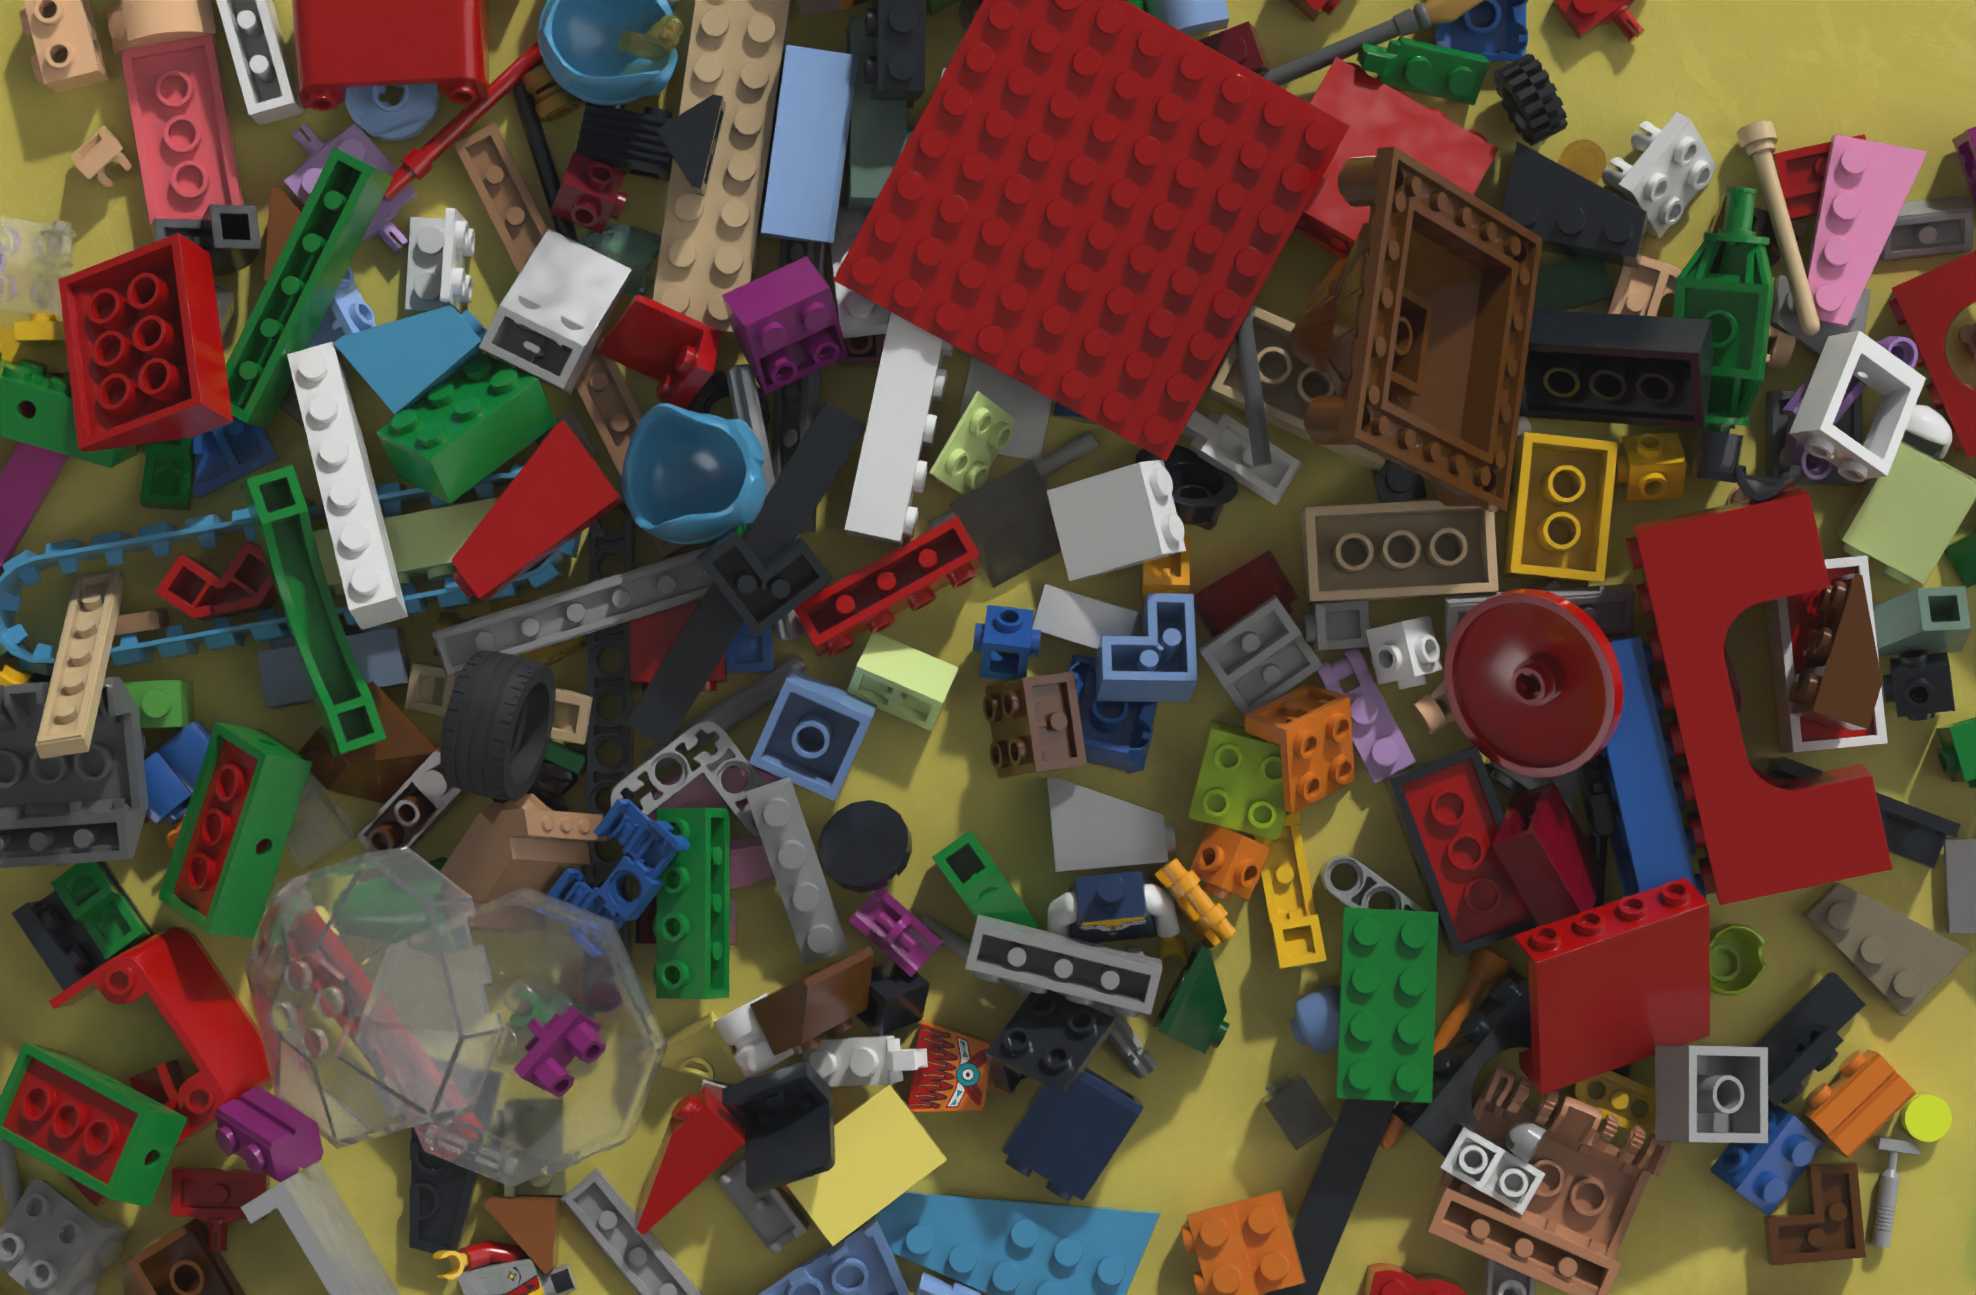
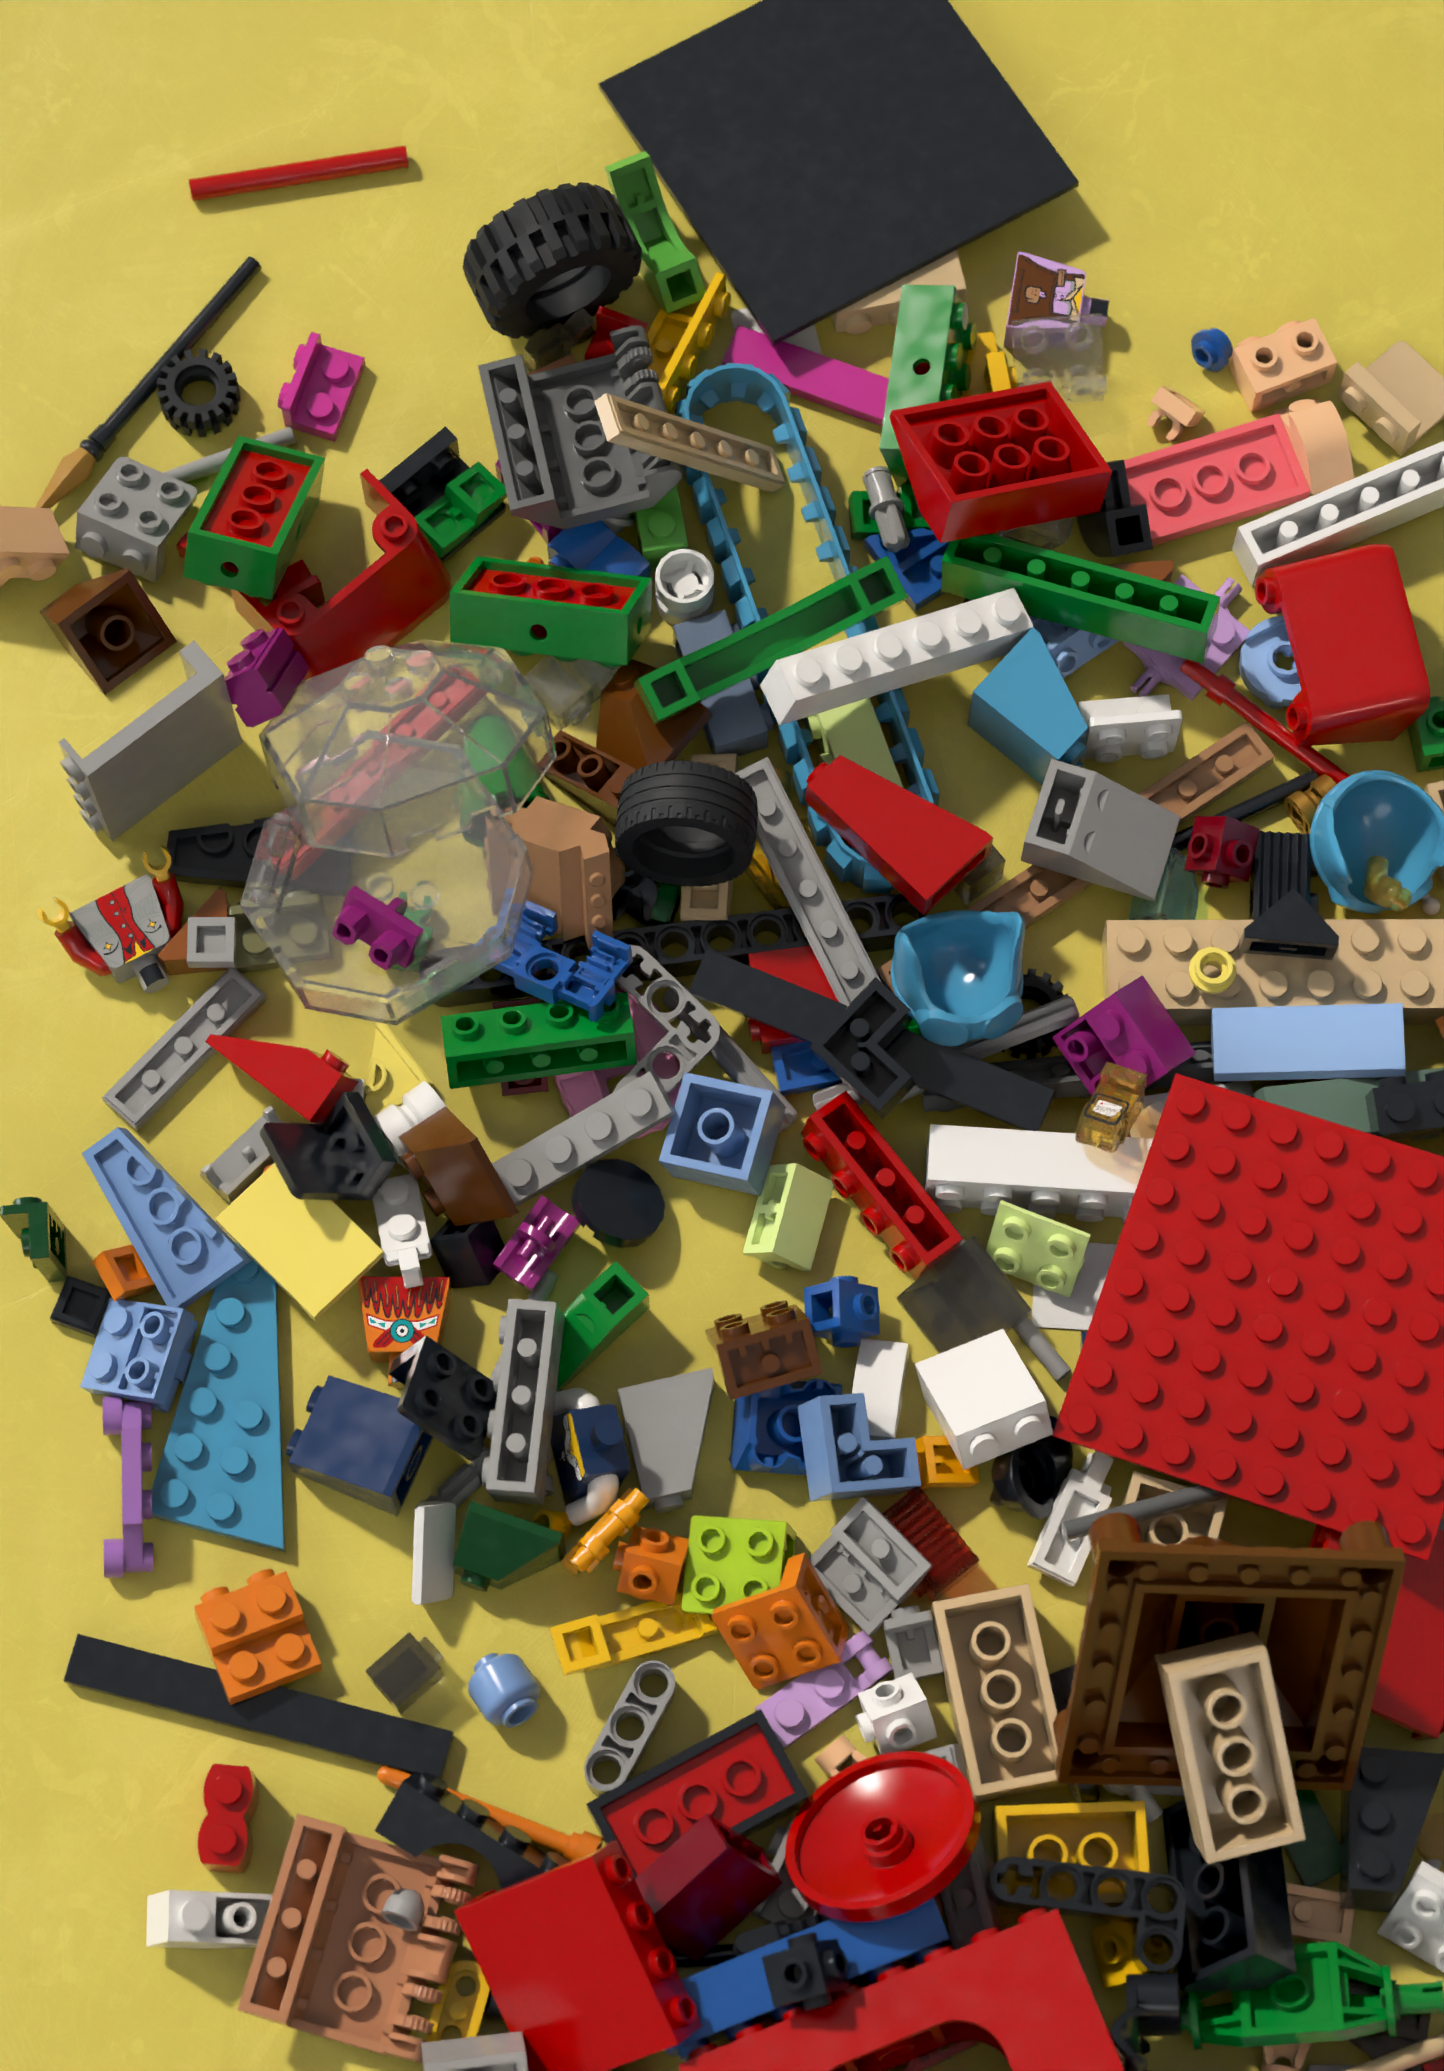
camera: 85 degrees right, 15 degrees down
(36, 106) = (1211, 349): none -> blue plate
(141, 621) = (738, 507): medium nougat tile -> none
(168, 470) = (886, 508): none -> light grey axle
(208, 595) = (775, 559): red brick -> none
(215, 1197) = (201, 626): red plate -> none
(223, 689) = (684, 586): none -> white wheel
(467, 427) = (972, 761): green brick -> none
(544, 1218) = (211, 942): none -> light grey plate
(664, 347) = (1083, 935): red bracket -> none
(715, 212) = (1212, 957): none -> light yellow plate
(857, 349) = (1112, 1108): none -> clear yellow leg
(1185, 1070) = (433, 1551): none -> white slope
(1386, 1005) = (526, 1738): green plate -> none
(1492, 1170) = (368, 1879): white slope -> none
(1511, 344) = (1230, 1747): none -> tan brick
(1618, 504) = (1087, 1904): none -> black beam
(1661, 774) = (807, 1972): none -> black brick

